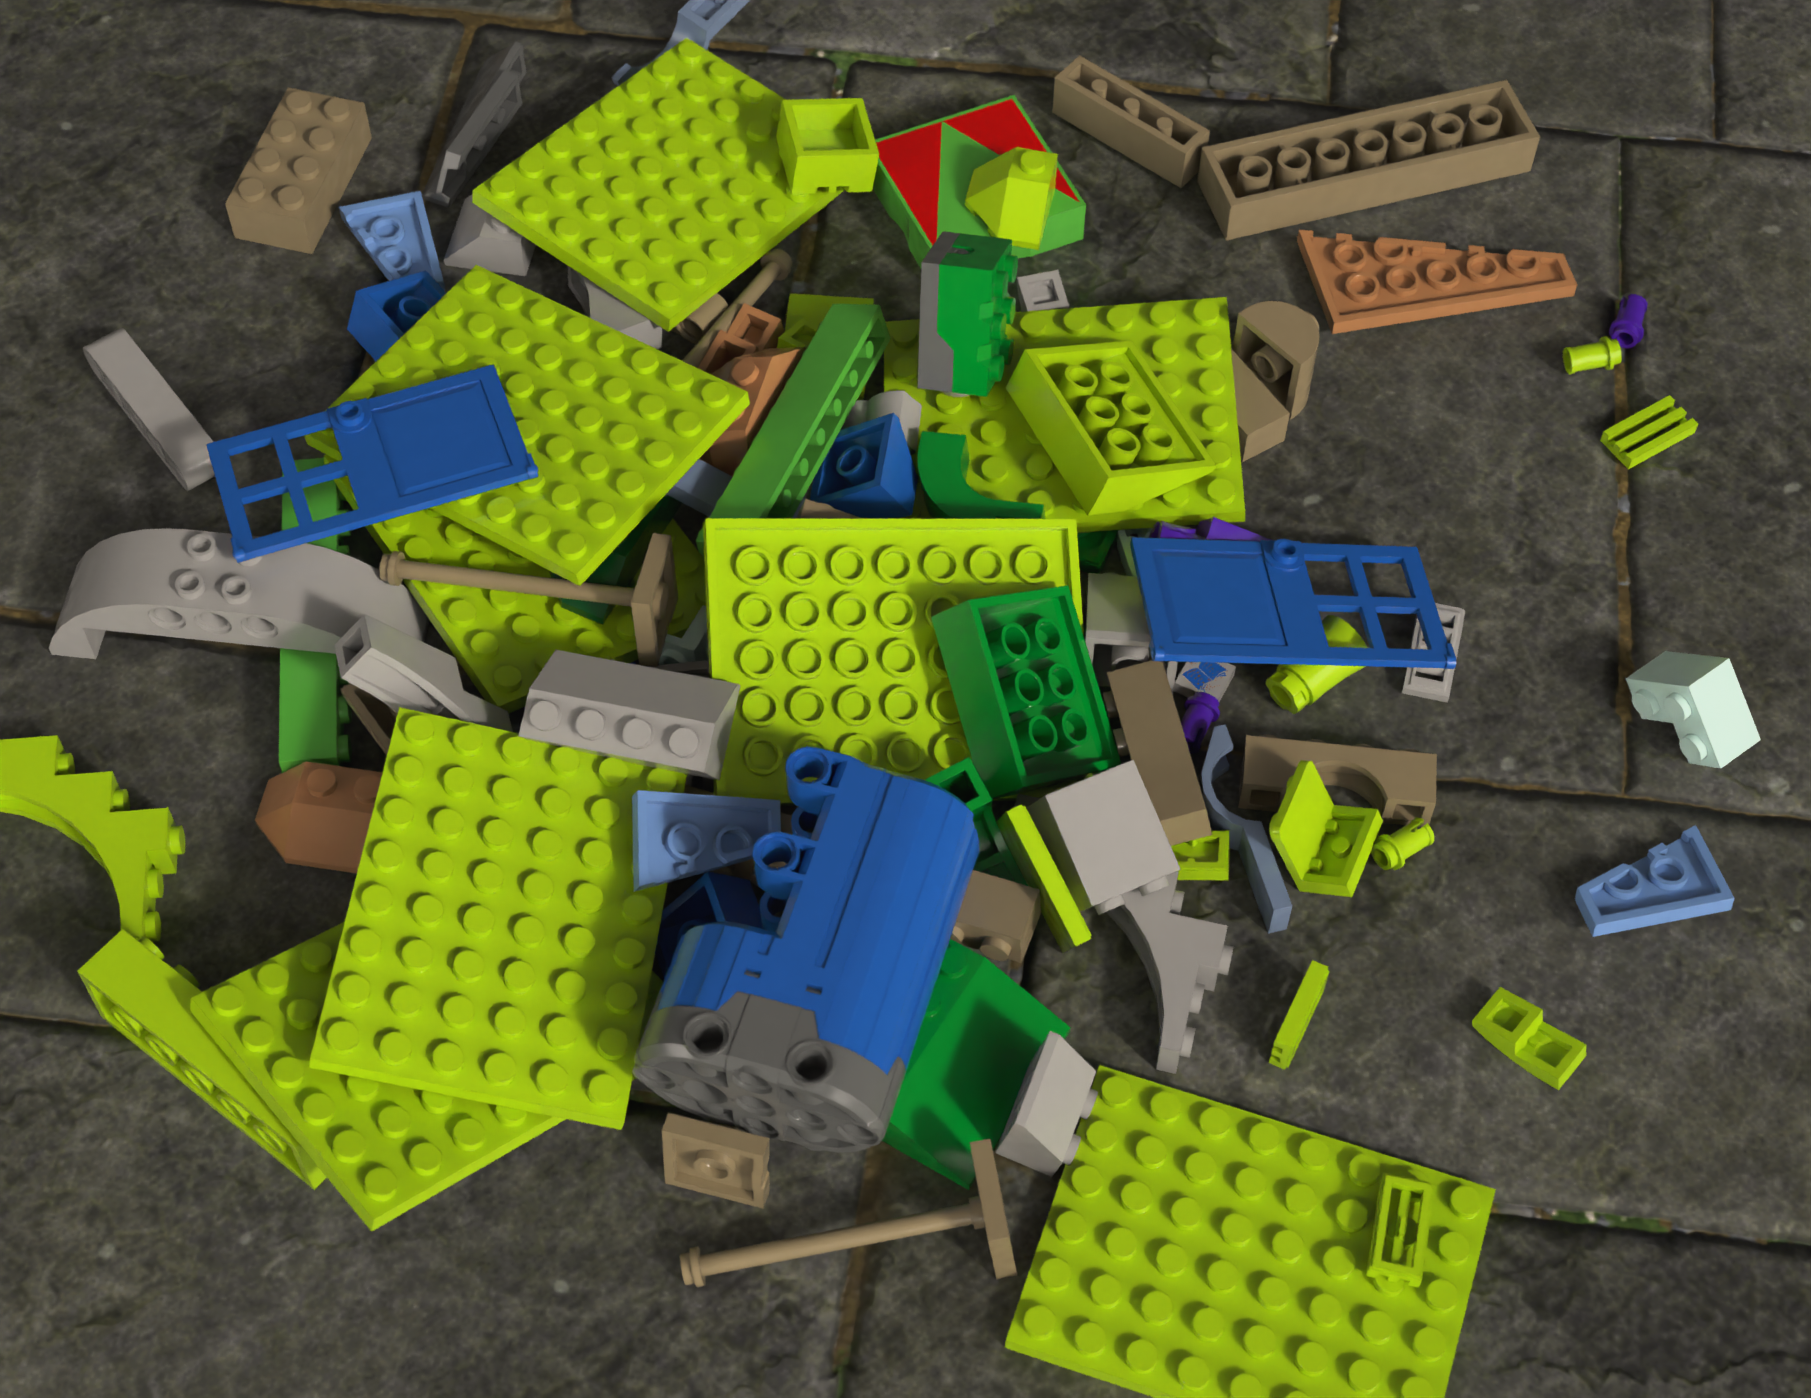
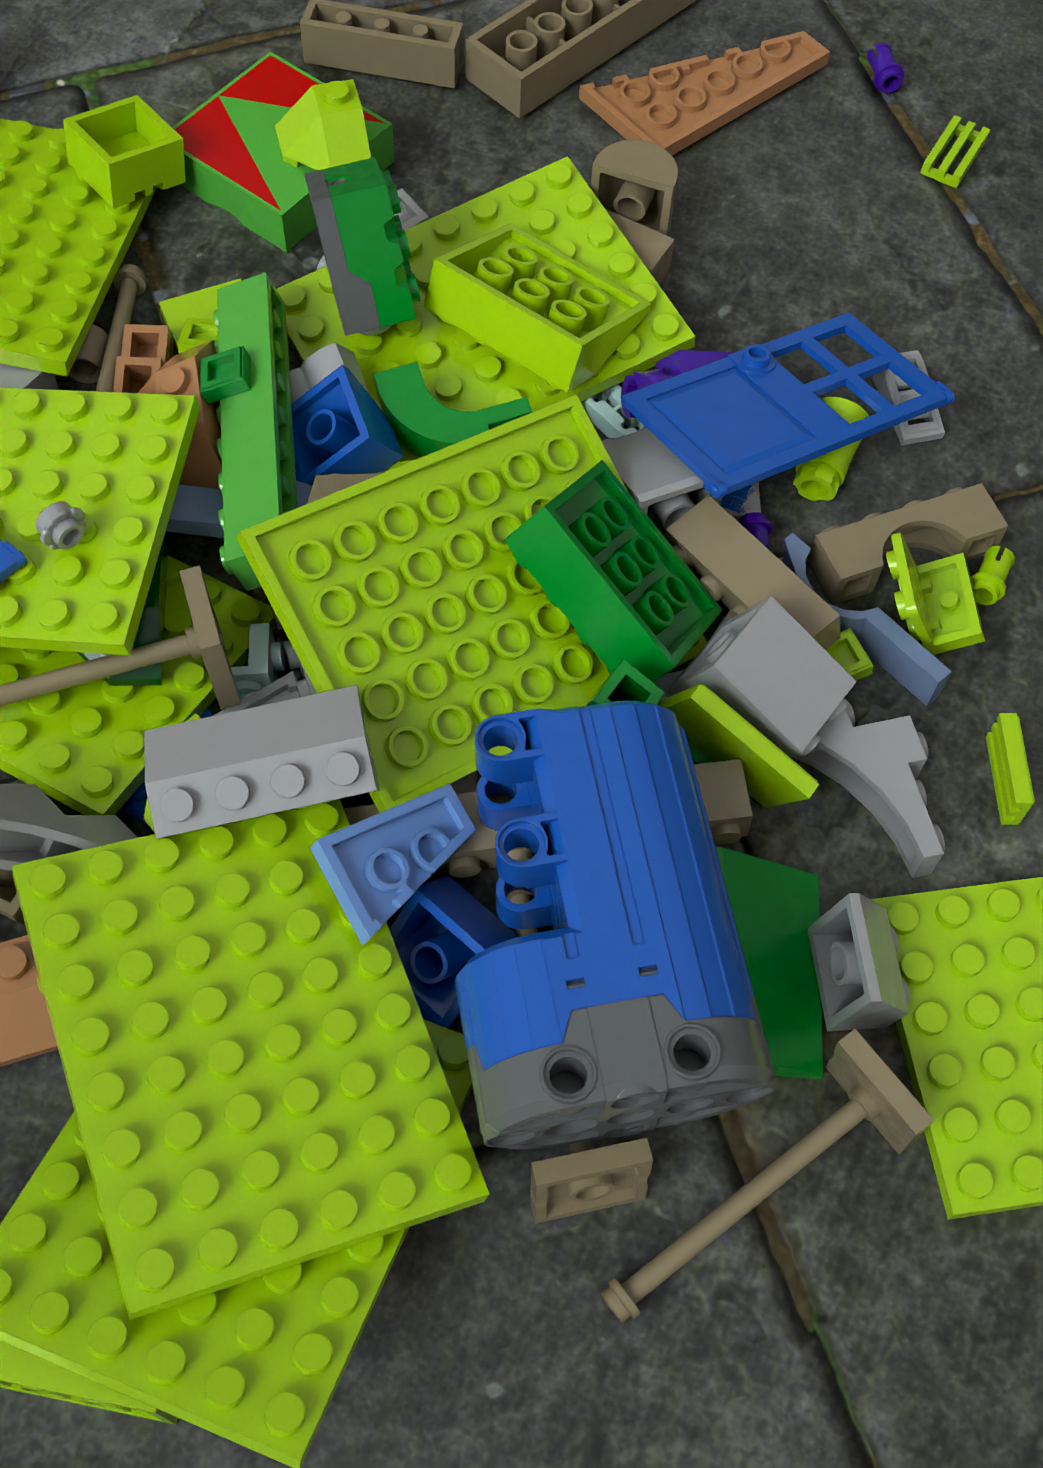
camera: 30 degrees left, 5 degrees up
(577, 457) = (61, 525): none -> light grey plate
(790, 382) = (225, 374): none -> green tile
(1594, 355) = (882, 101): lime pin -> none

